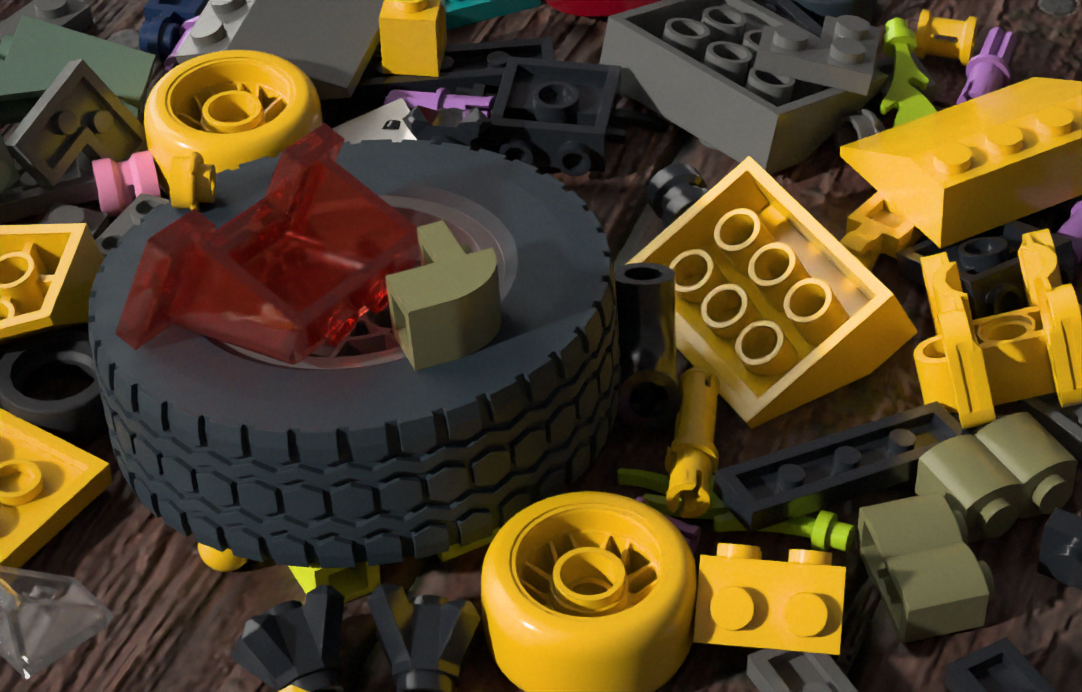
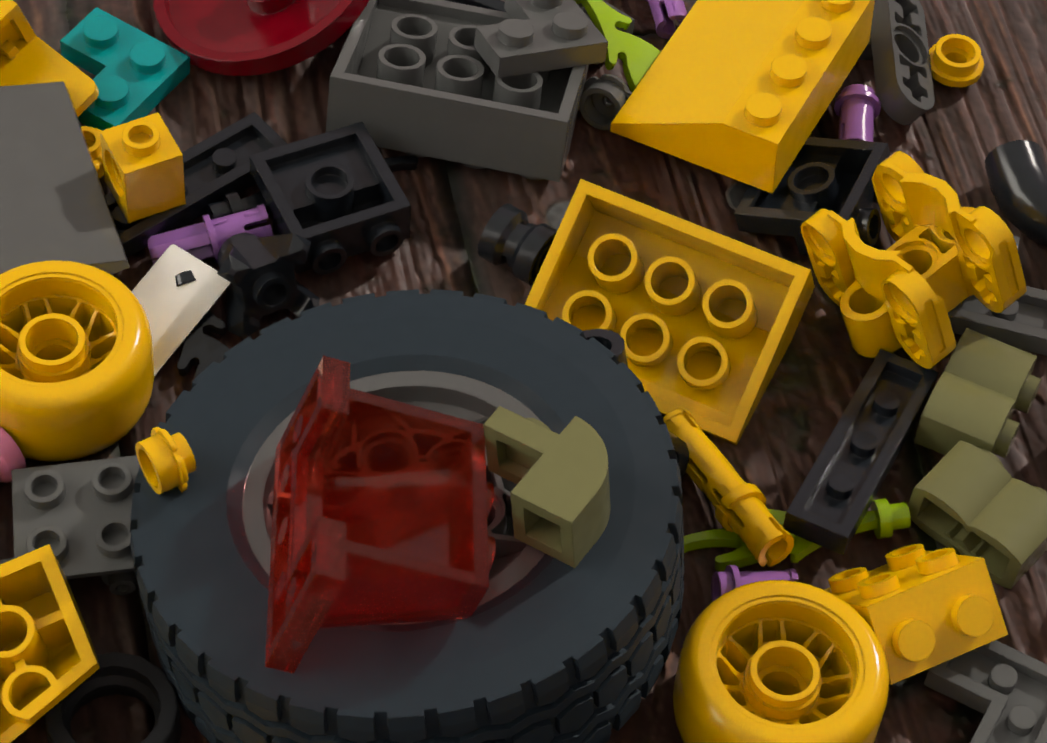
camera: 40 degrees left, 10 degrees up
(878, 229) = (699, 193): yellow plate -> none

